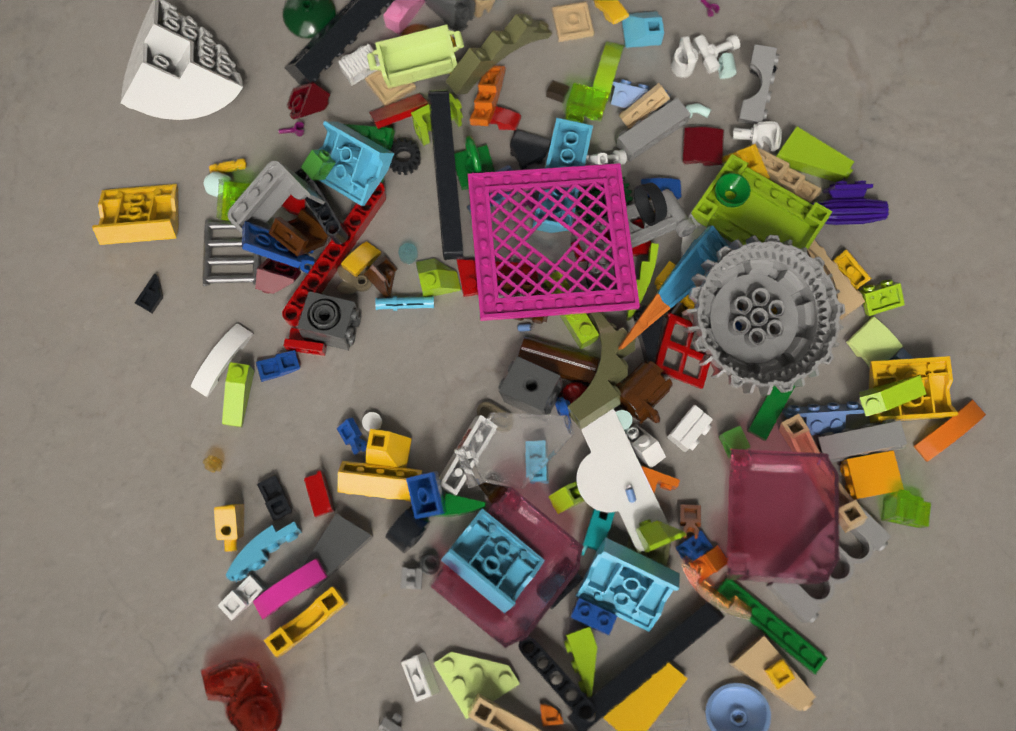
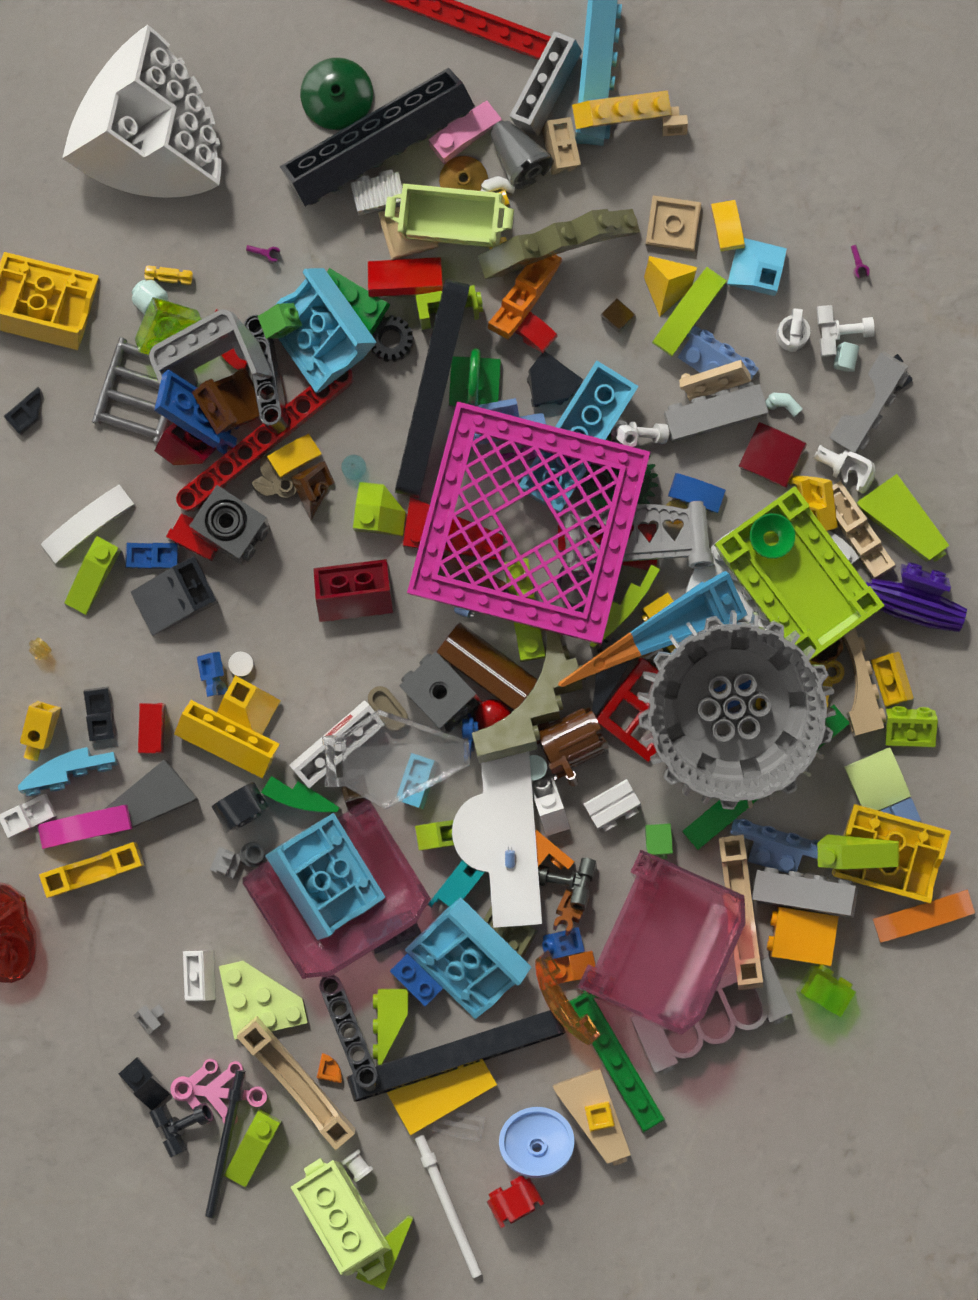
camera: 25 degrees right, 10 degrees up
(304, 388) = (174, 596): none -> black slope
(307, 100) = (292, 224): dark red slope -> none
(404, 303) = (328, 530): medium azure pin -> none
(426, 495) = (273, 777): blue slope -> none
(438, 339) = (352, 590): none -> dark red slope
(584, 57) = (668, 281): none -> yellow slope
(586, 103) = (641, 352): clear neon green brick -> none
(644, 207) = (665, 518): black tyre -> none
(657, 534) = (521, 915): lime slope -> none
(688, 496) = (577, 882): none -> pearl dark grey bar

